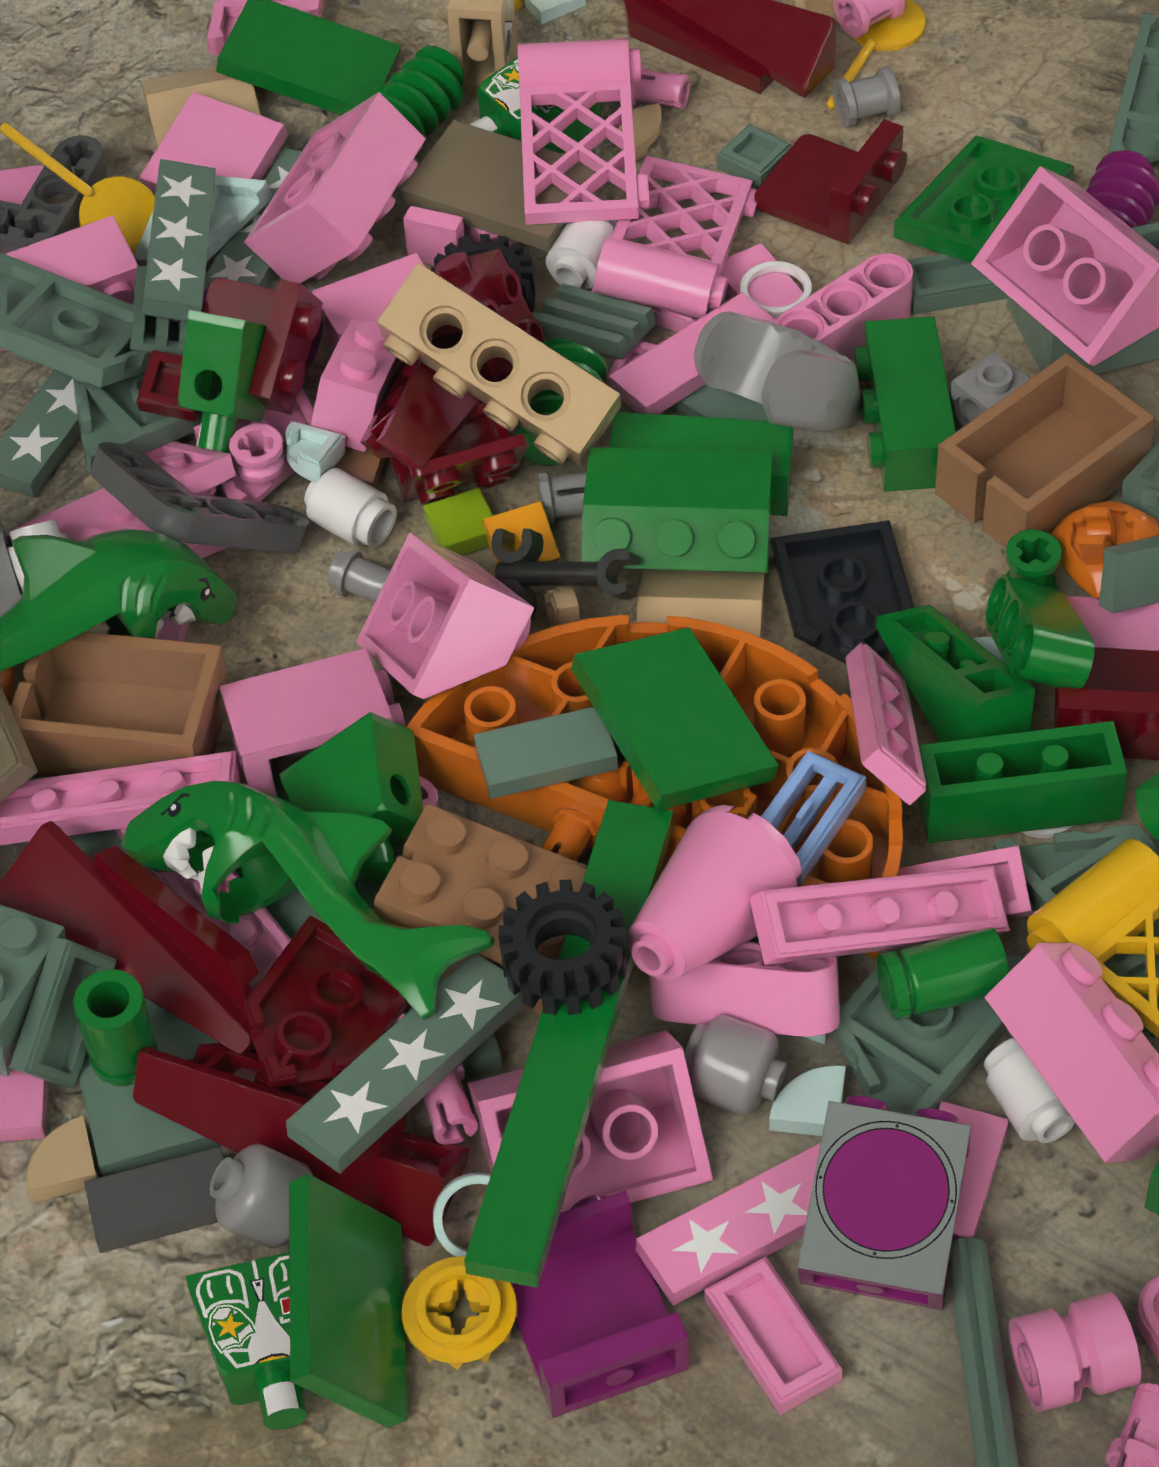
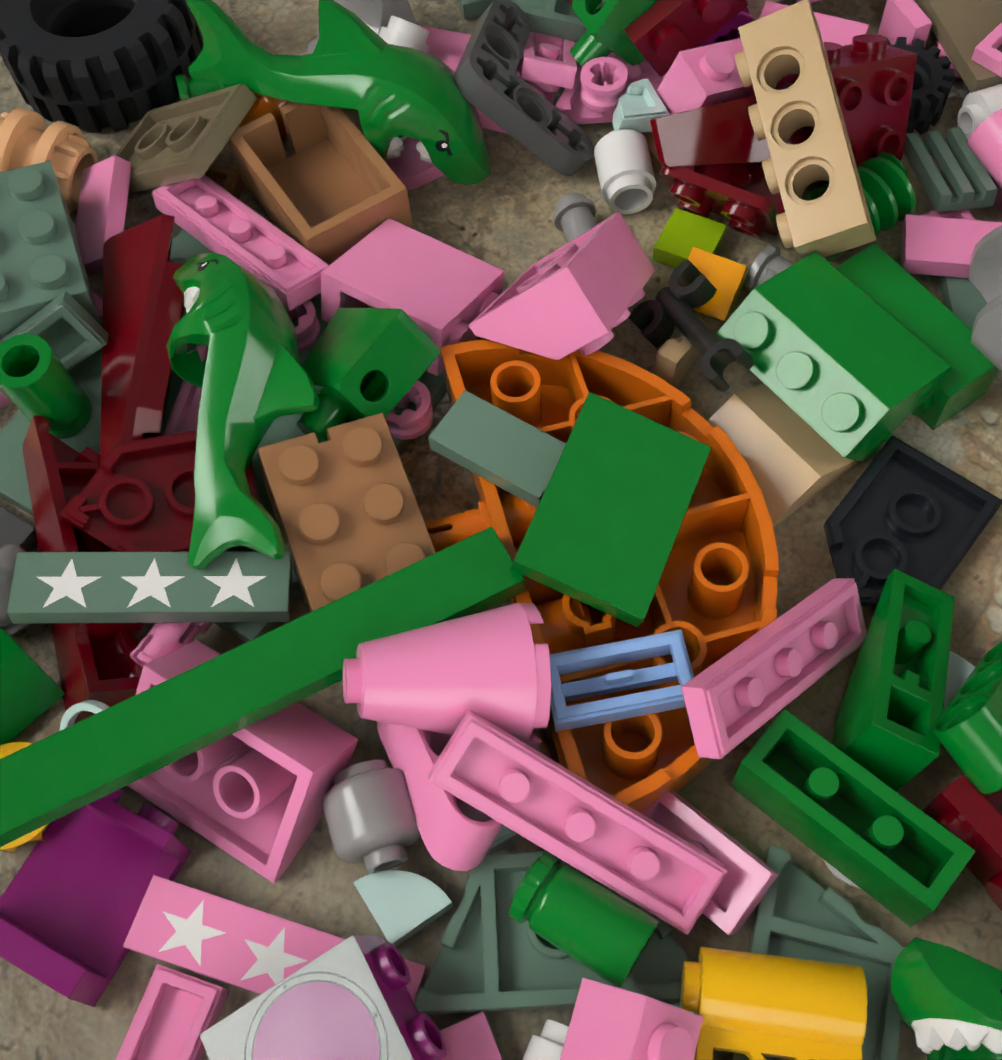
camera: 50 degrees right, 10 degrees up
(567, 979) = (292, 574): black tyre -> none

